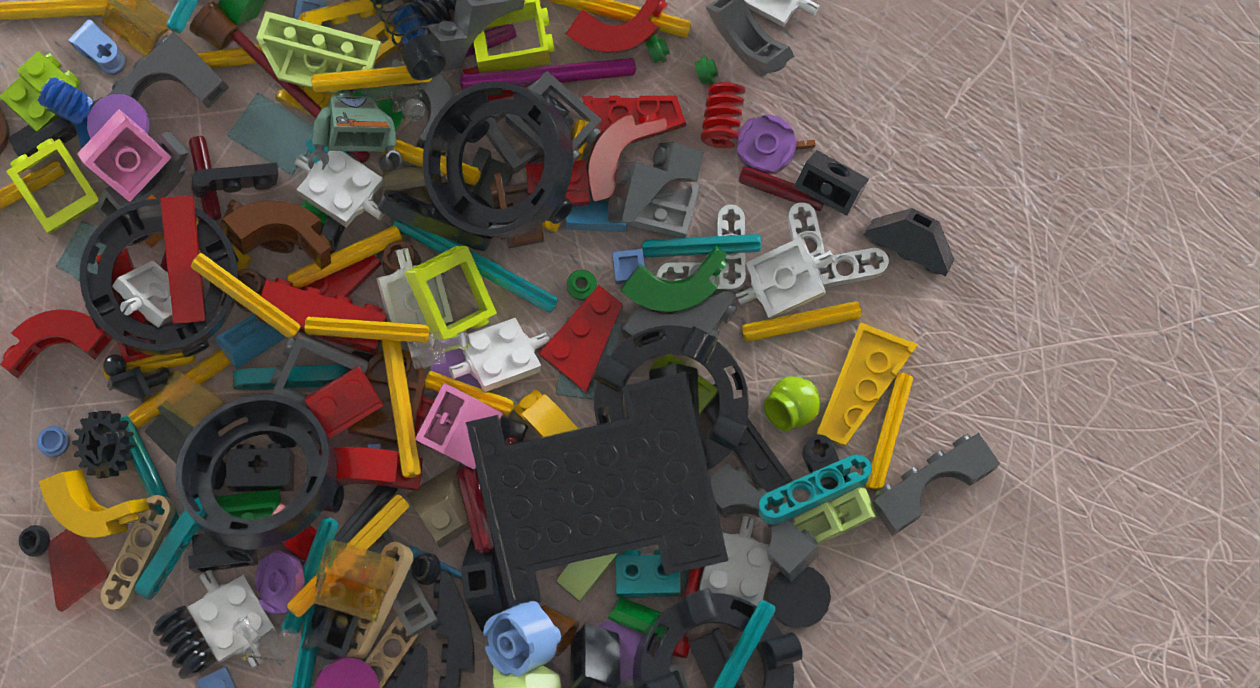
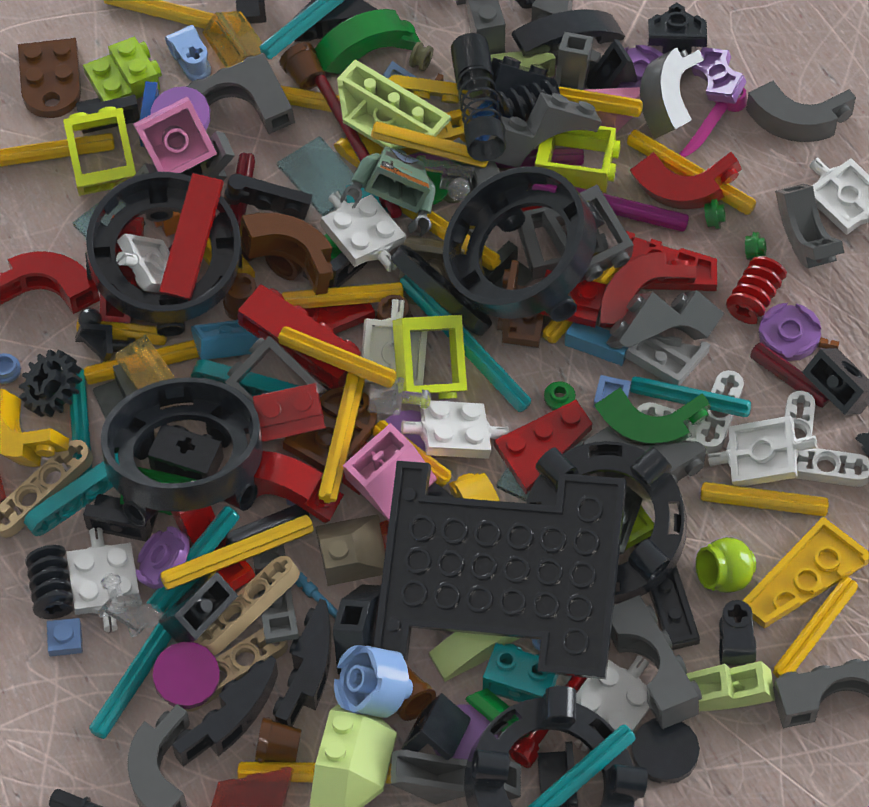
camera: 20 degrees right, 15 degrees down
(65, 100) = (141, 77): blue gear -> none
(245, 296) = (235, 286): yellow axle -> none
(352, 580) = (233, 565): clear yellow slope -> none
(426, 568) = (306, 593): black plate -> none
(475, 510) = (375, 555): dark red axle -> none
(817, 492) = (718, 649): teal beam -> none

